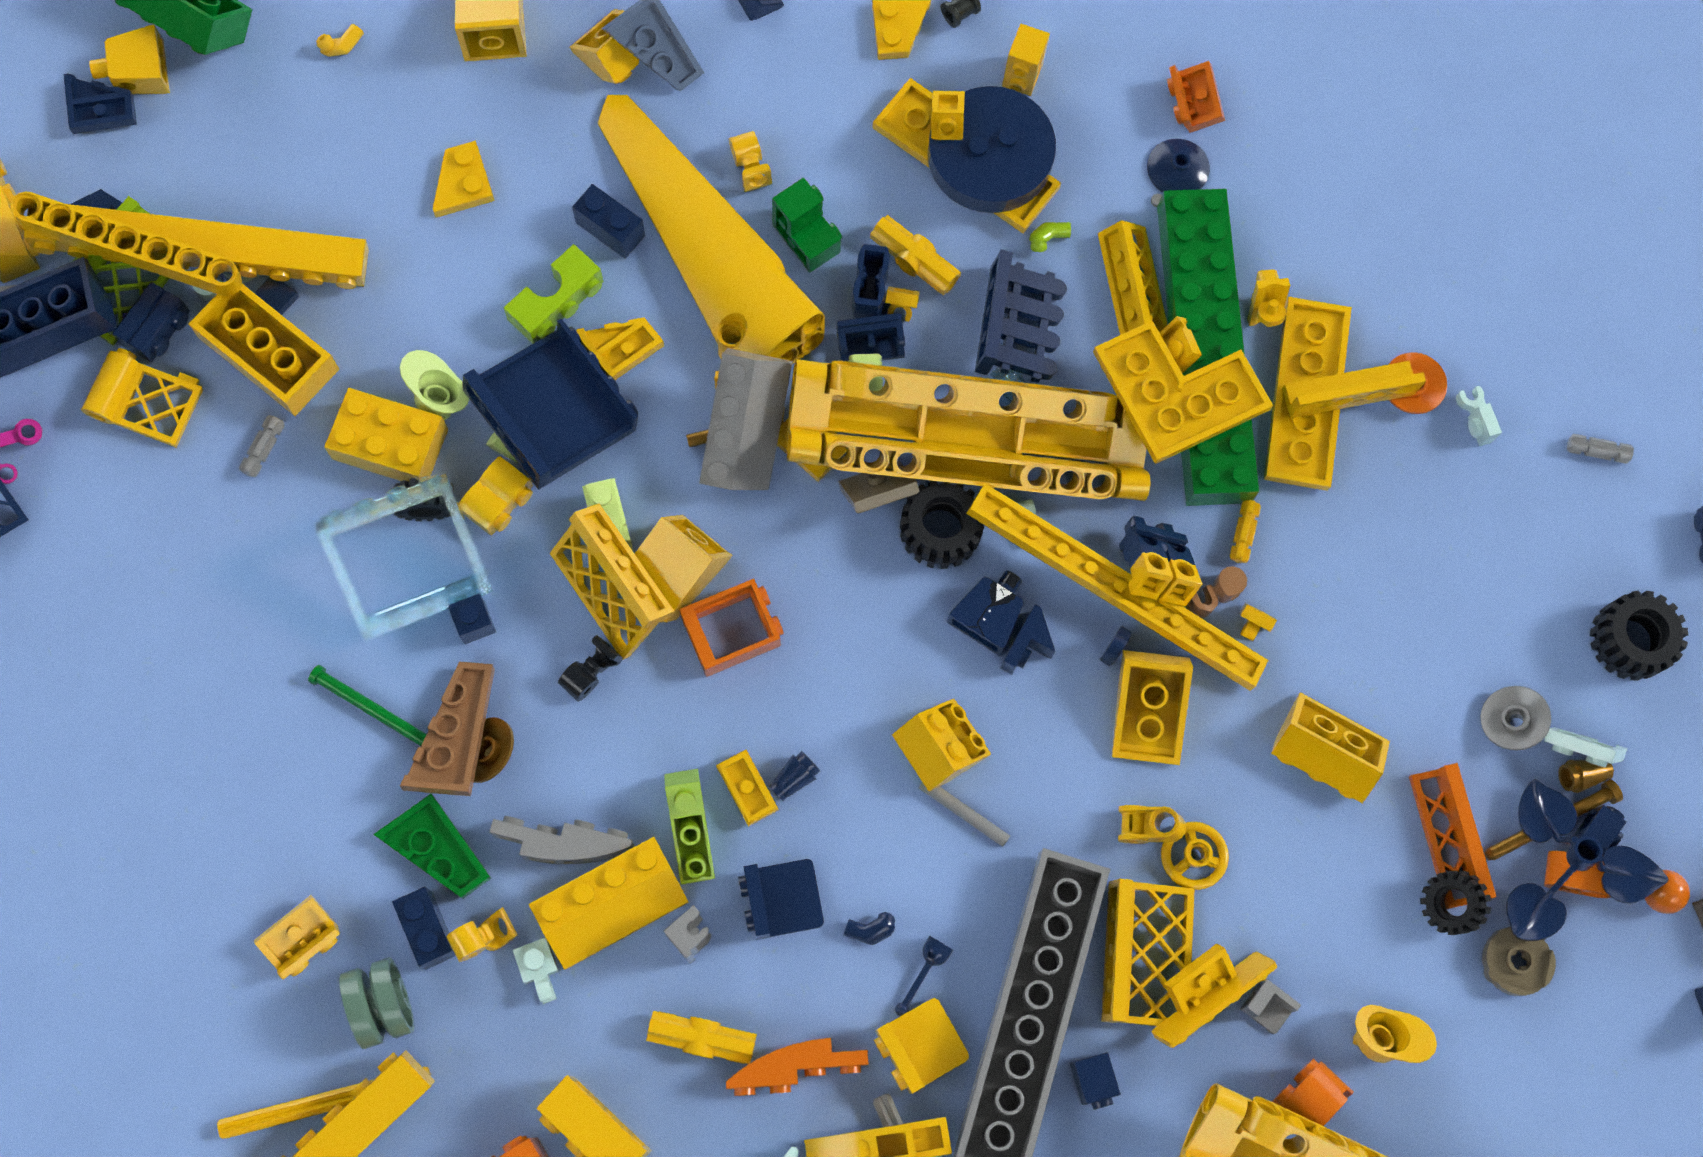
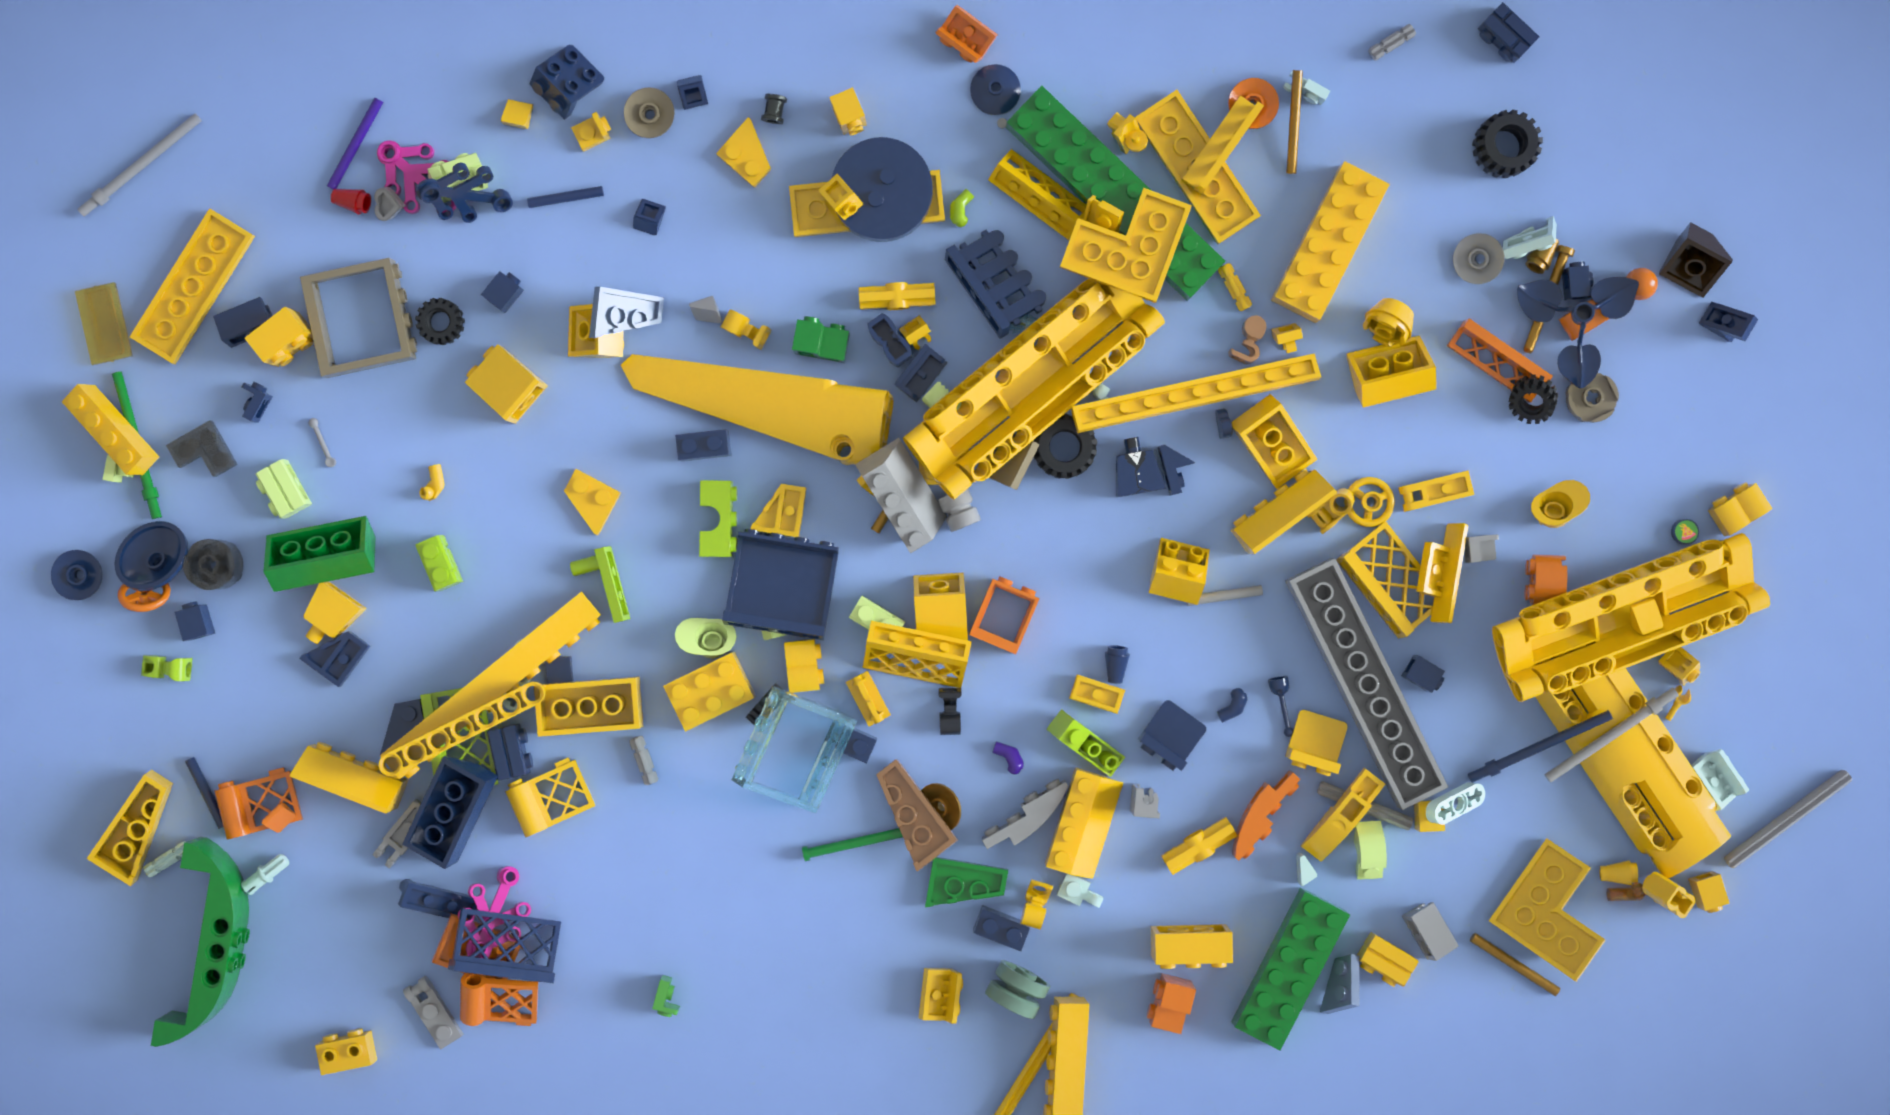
camera: 35 degrees left, 15 degrees up
(41, 676) = (665, 992): none -> bright green bracket
(270, 107) = (439, 563): none -> lime brick
(412, 246) = (605, 562): none -> lime piece
(525, 585) = (868, 698): none -> yellow hinge
(605, 770) = (1012, 756): none -> dark purple arm
(730, 113) = (706, 310): none -> light grey slope
(786, 486) = (959, 511): none -> light grey wheel
(1096, 779) = (1282, 511): none -> yellow slope
(1159, 562) = (1206, 356): hips -> none
(1274, 906) = (1437, 490): none -> yellow plate
(1371, 695) = (1389, 322): none -> yellow cone
(1377, 570) = (1330, 242): none -> yellow brick
(1440, 432) = (1294, 121): none -> pearl gold bar

